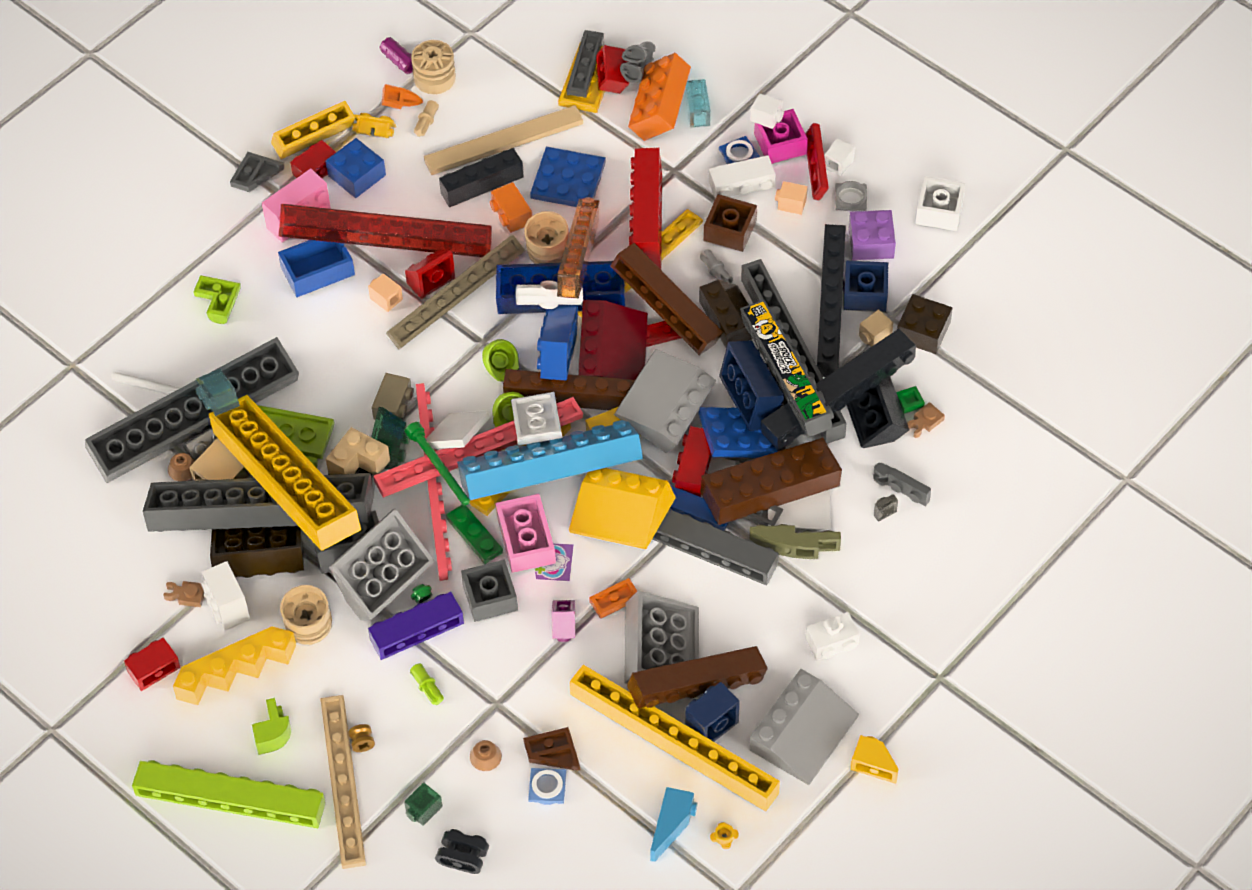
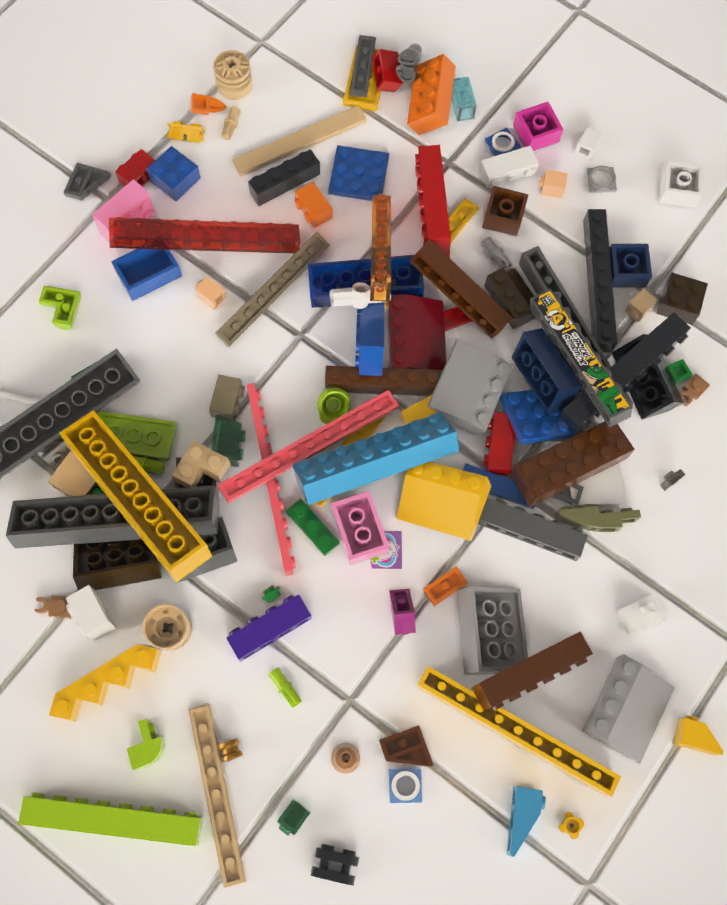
camera: 10 degrees left, 15 degrees up
(152, 663) = (28, 685): red brick -> none
(179, 467) = (39, 477): medium nougat cone -> none
(216, 392) = (65, 412): clear light blue brick -> none
(312, 129) = (132, 139): yellow brick -> none
(380, 566) = (233, 577): light grey slope -> none
(397, 54) = (200, 64): magenta axle -> none
(416, 433) = (252, 438): green piece -> none
(431, 273) = (249, 271): red slope -> none
(457, 429) = (287, 429): white tile -> none
(489, 590) = (333, 589): dark grey brick -> none
(500, 356) = (318, 353): lime hat -> none
(536, 418) = (359, 417): white tile -> none
(546, 237) = (345, 226): tan wheel -> none
(713, 712) = (549, 707): dark blue brick -> none
(766, 111) = (528, 105): white brick -> none
(816, 162) = (571, 150): red tile -> none
(872, 235) = (626, 215): medium lavender brick -> none
(902, 483) = (683, 454): dark grey hinge -> none

